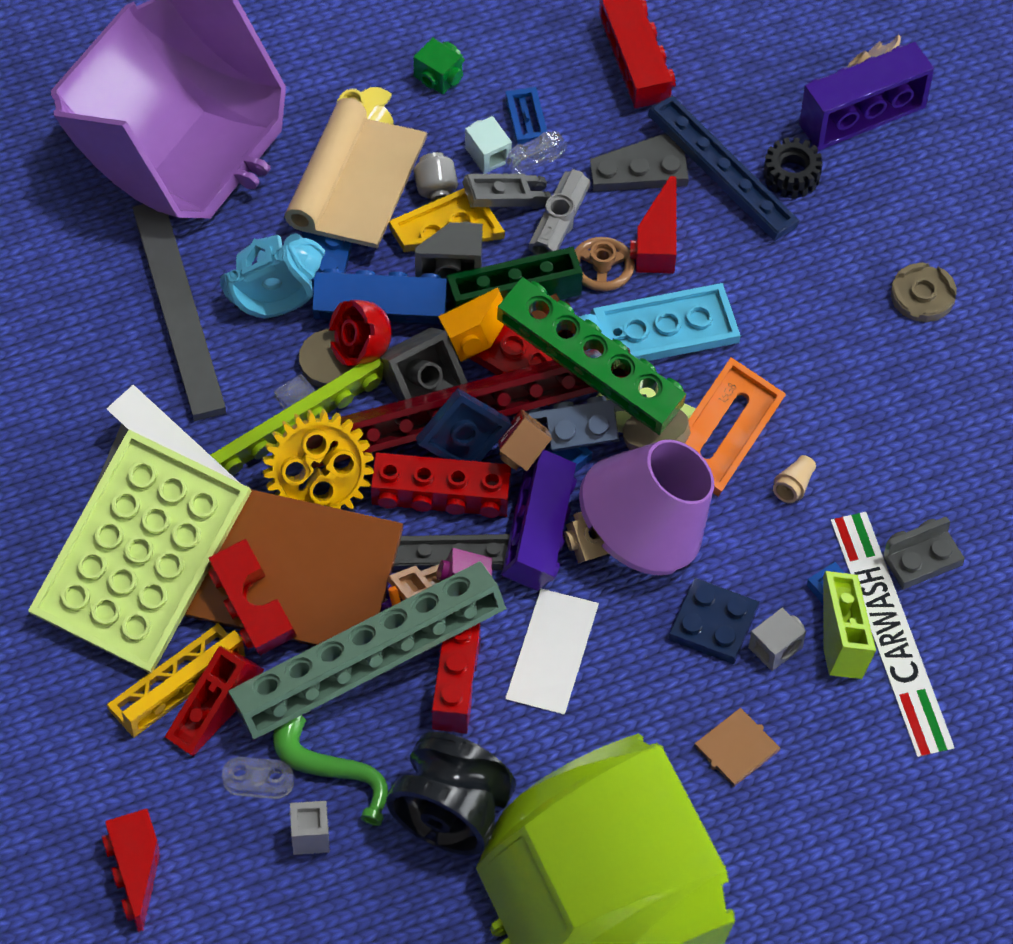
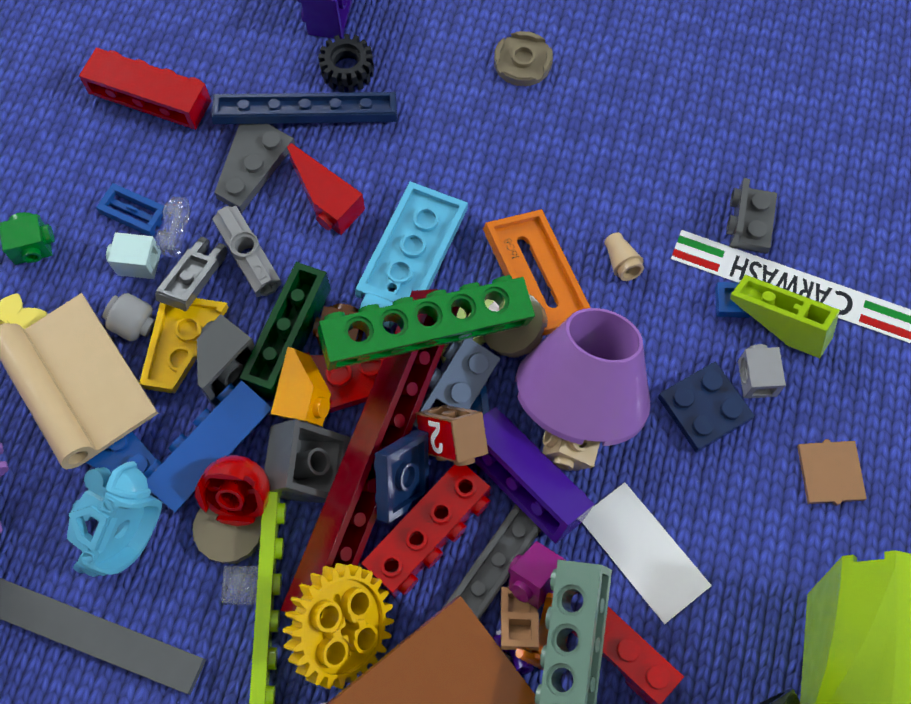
camera: 50 degrees left, 10 degrees up
(603, 257) = (313, 238): medium nougat piece -> none

